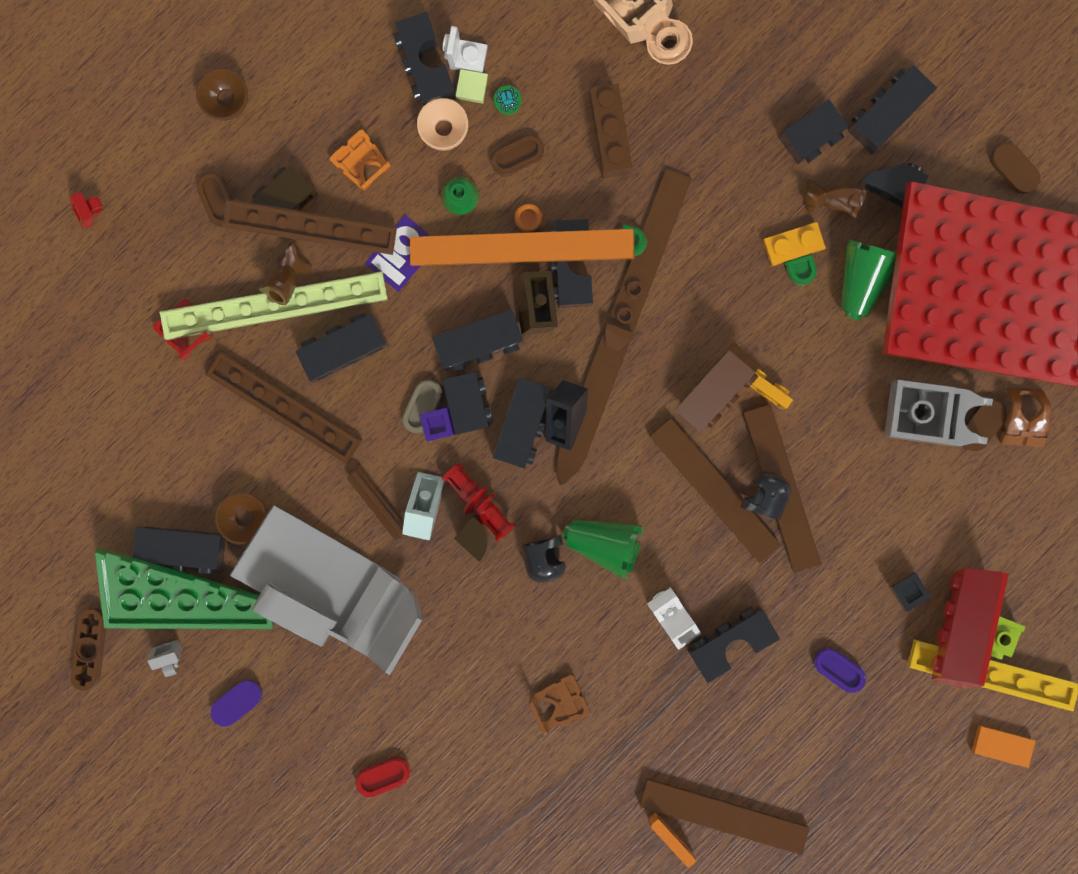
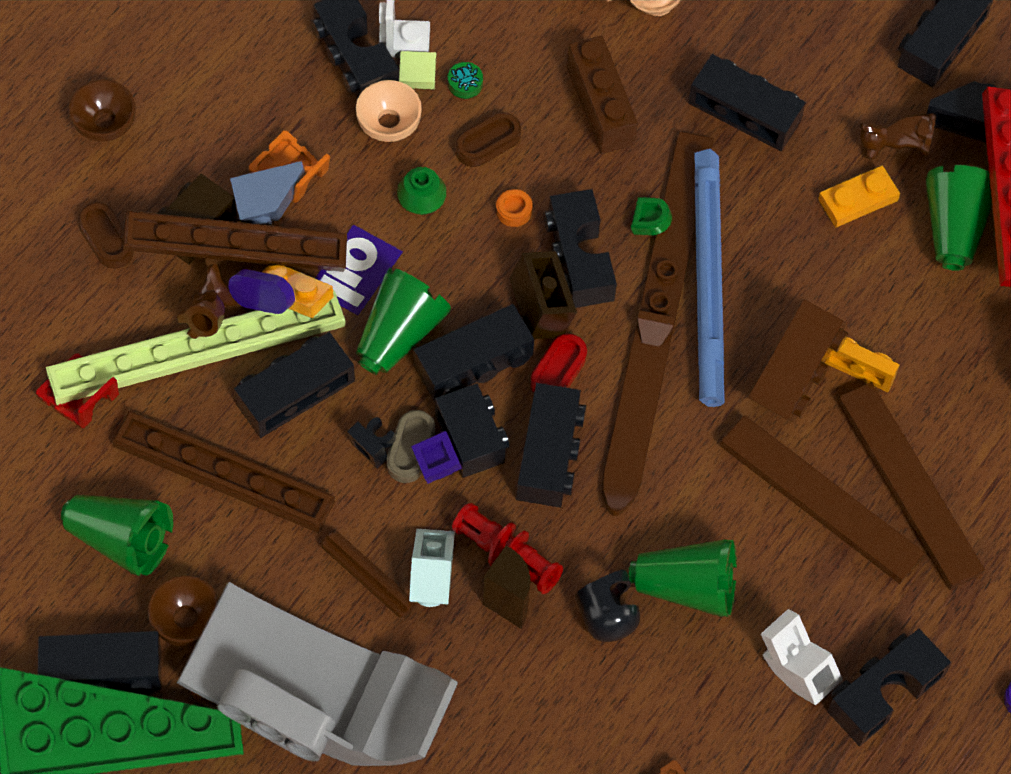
camera: 10 degrees left, 25 degrees down
(202, 450) = (121, 529): none -> green cone
(325, 271) = (261, 291): none -> dark purple tile
(338, 188) = (266, 193): none -> sand blue slope
(350, 270) = (309, 292): none -> light orange plate
(389, 403) = (369, 444): none -> black tile
(425, 309) = (398, 320): none -> green cone
(522, 247) = (514, 231): orange tile -> none
(540, 357) = (560, 362): none -> red tile
(565, 414) = (604, 425): black slope -> none
(665, 298) = (709, 279): none -> medium blue piece
(723, 151) = (746, 102): none -> black brick
(771, 497) = (900, 483): black helmet -> none
(801, 270) = (875, 224): green tile -> none
(814, 132) = (855, 67): black brick -> none

